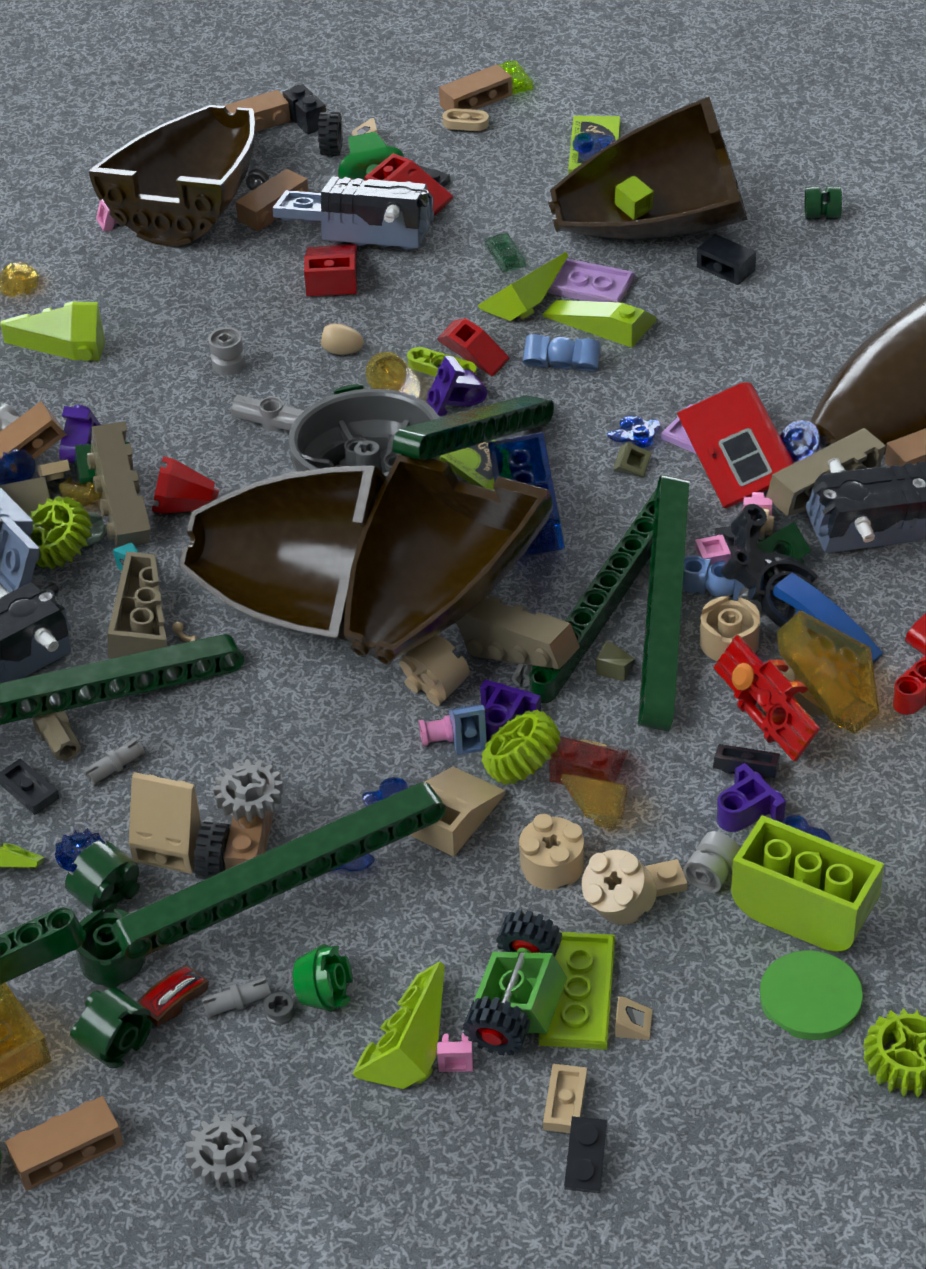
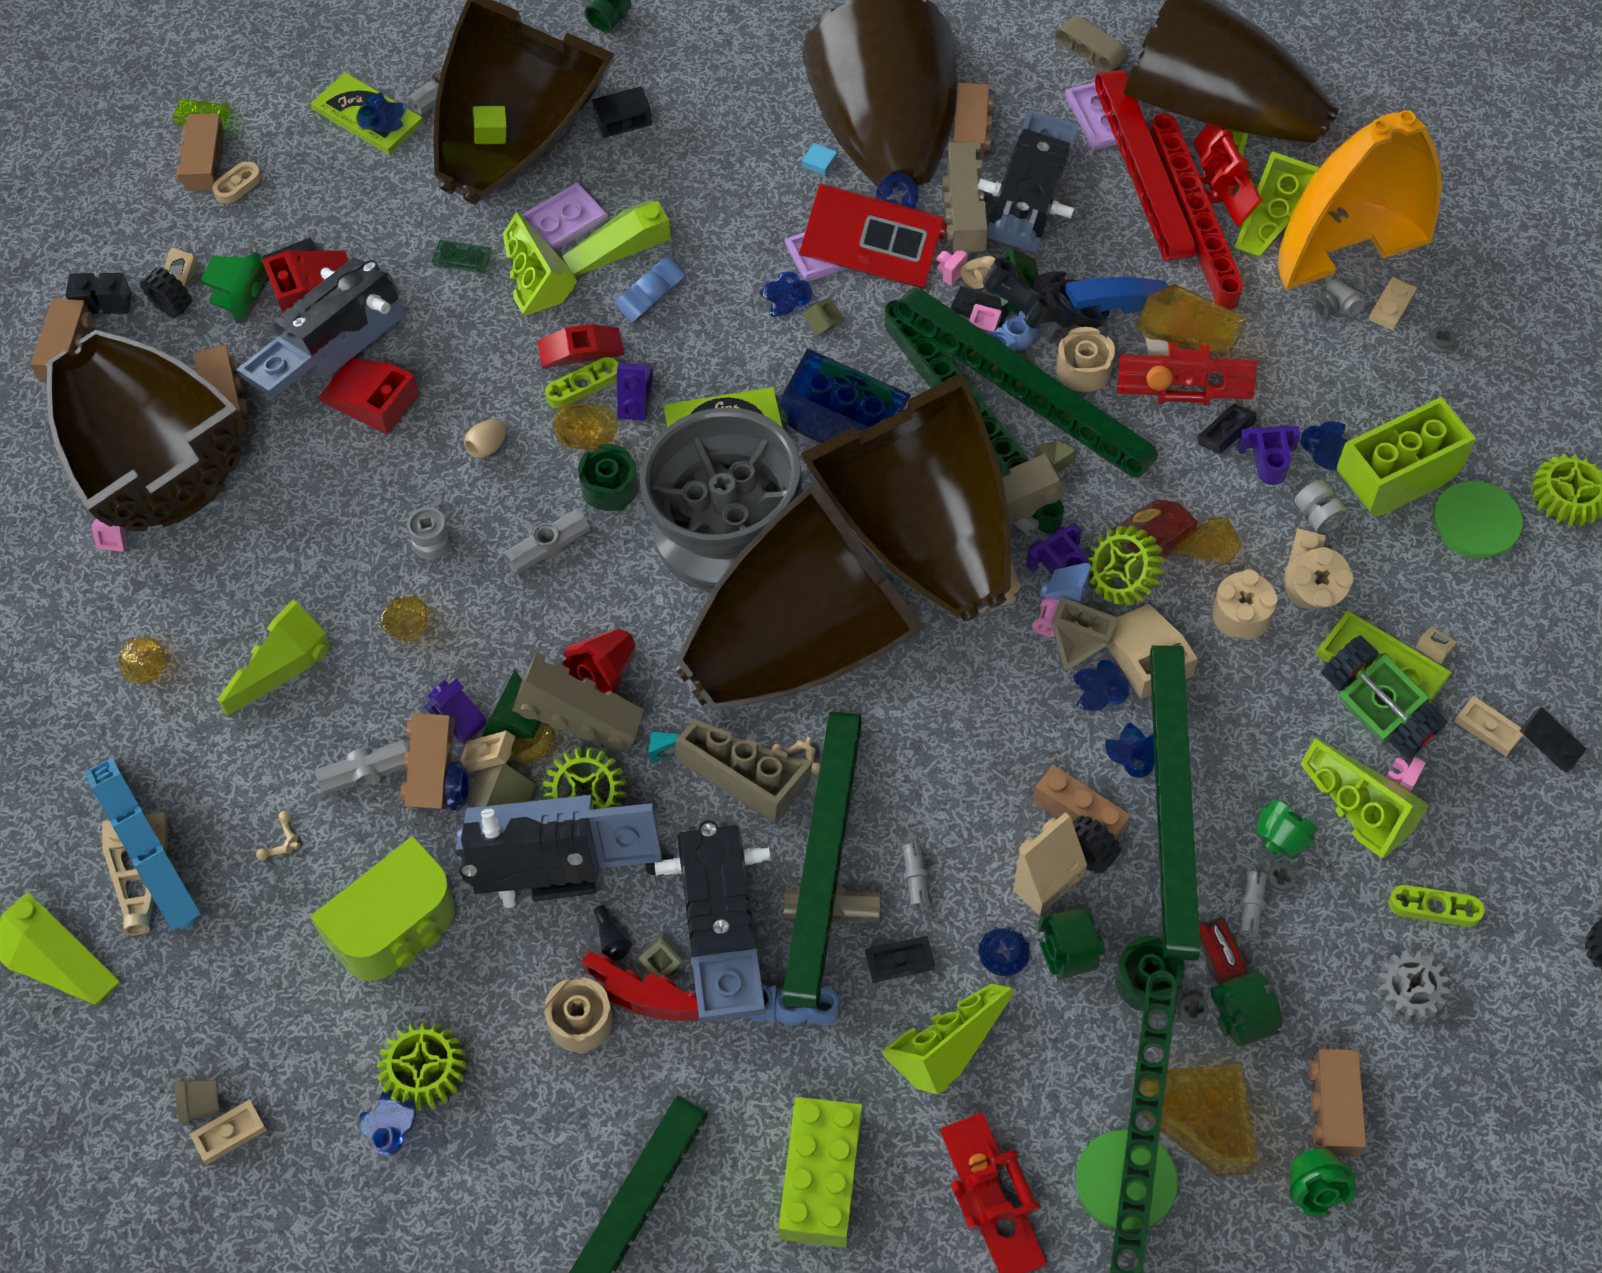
camera: 60 degrees left, 15 degrees up
(144, 378) = (405, 618): none -> clear yellow hair
(248, 790) = (1066, 792): light grey gear -> none
(331, 1125) = (1446, 898): none -> lime beam
(430, 749) = (1080, 631): none -> dark tan slope
(472, 427) = (767, 393): dark green beam -> none
(797, 386) = (819, 159): none -> medium azure tile

